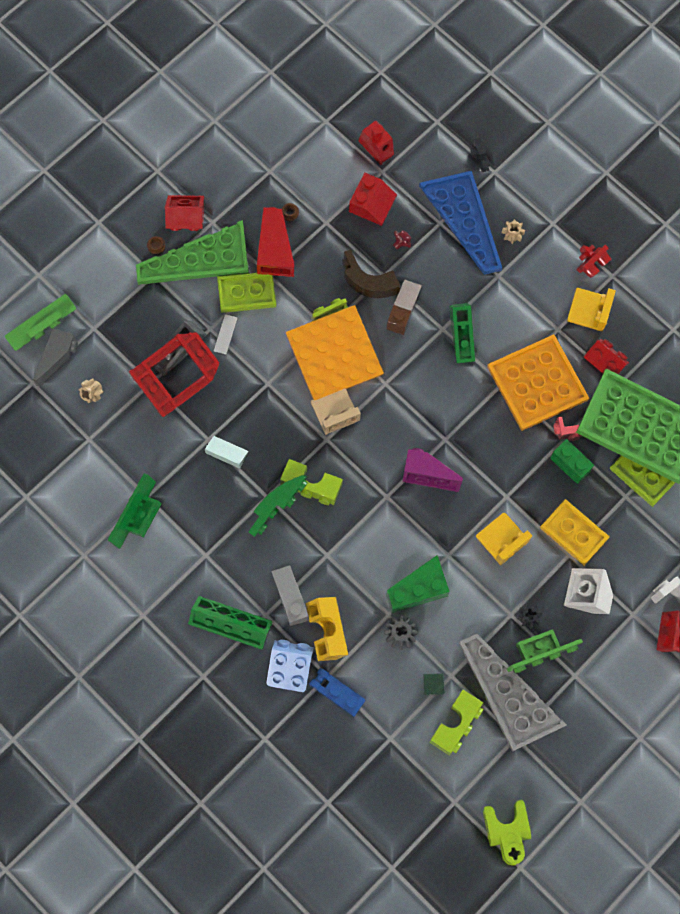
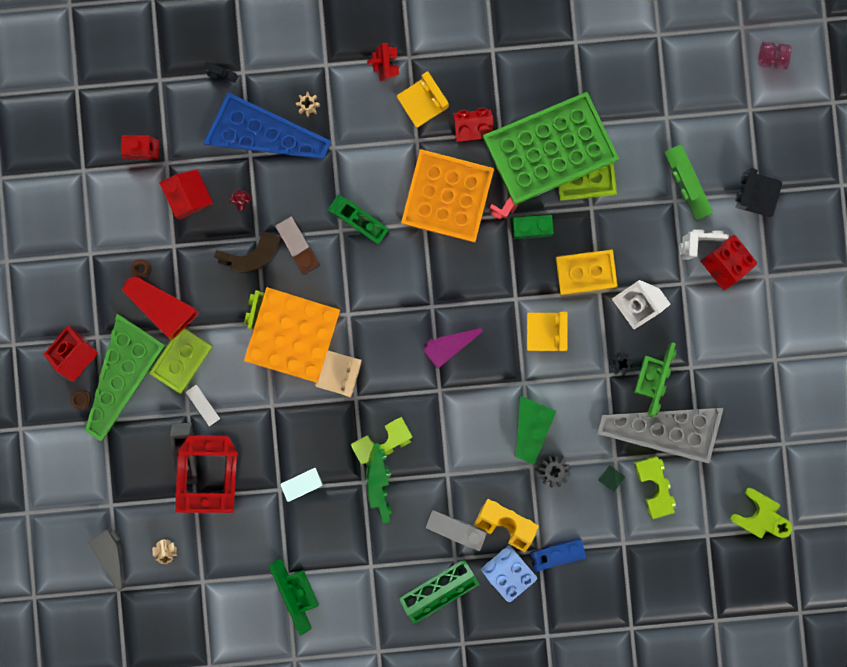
camera: 45 degrees left, 15 degrees up
(40, 322) = (72, 545): bright green bracket -> none

